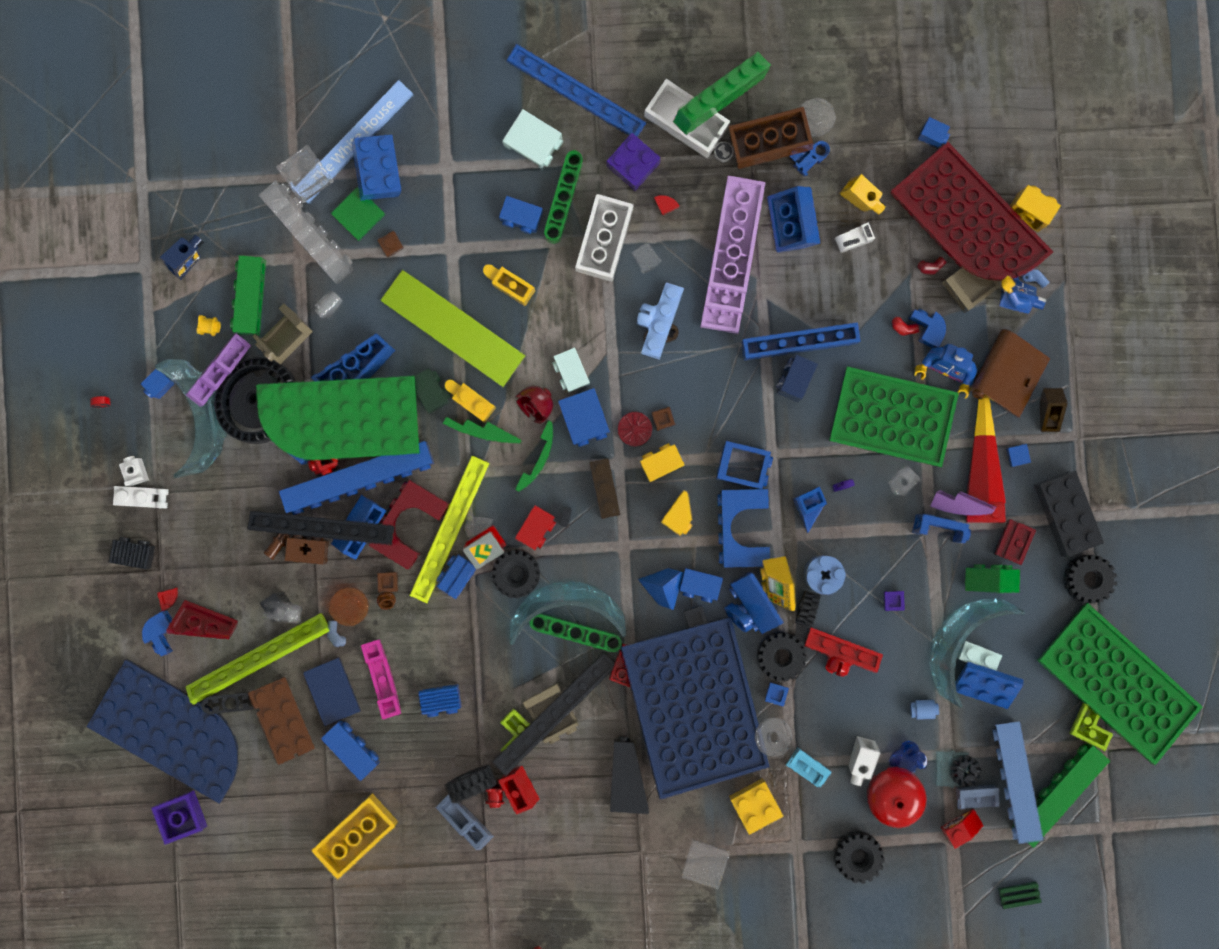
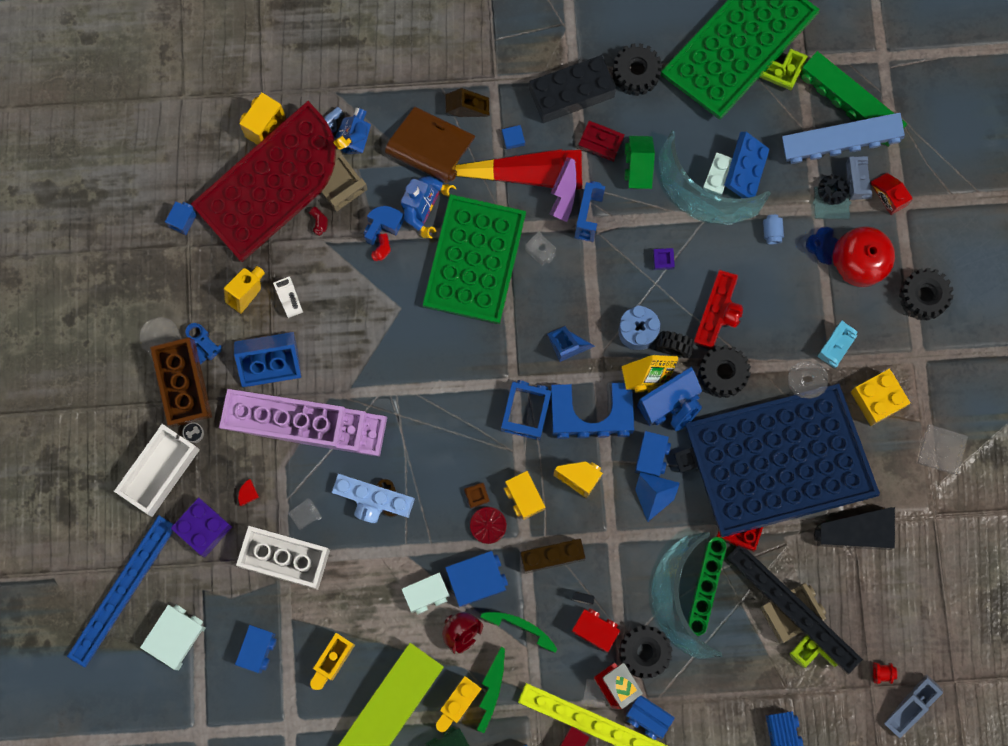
camera: 90 degrees left, 10 degrees down
(470, 784) = (873, 698): black tyre -> none
(519, 790) = (877, 645): red brick -> none
(566, 188) = (227, 602): green beam -> none
(721, 93) = (133, 432): green brick -> none
(776, 694) = (763, 377): blue plate -> none
(796, 379) = (435, 355): dark blue brick -> none
(800, 341) = (396, 352): blue brick -> none
(843, 485) = (545, 309): dark purple tile -> none
(863, 760) = (827, 289): white torso -> none
(1036, 893) = (965, 152): dark green tile -> none

